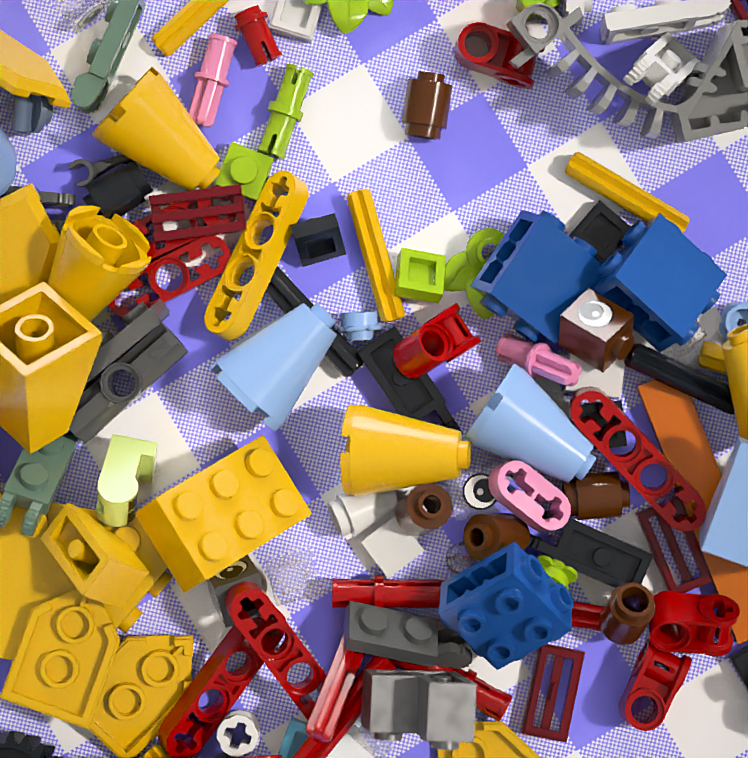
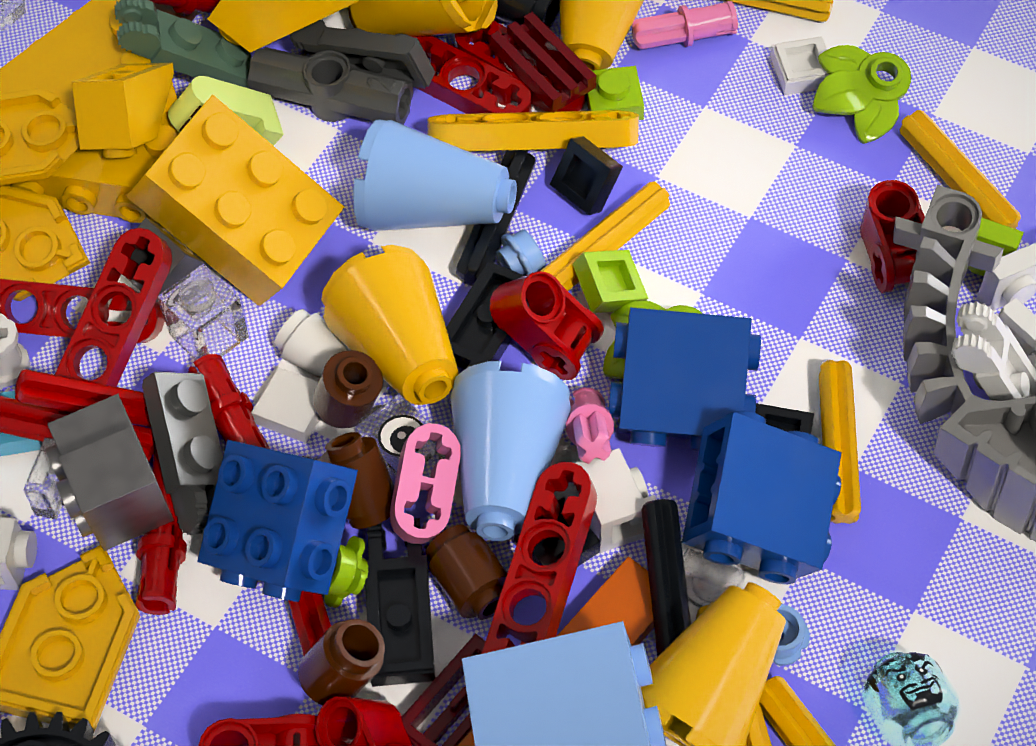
camera: 65 degrees right, 30 degrees down
(257, 33) = (763, 30): red pin -> none
(285, 111) = (698, 96): lime pin -> none
(426, 105) = (794, 204): reddish brown brick -> none
(544, 730) = (207, 677): dark red tile -> none
(596, 330) = (661, 450): reddish brown brick -> none

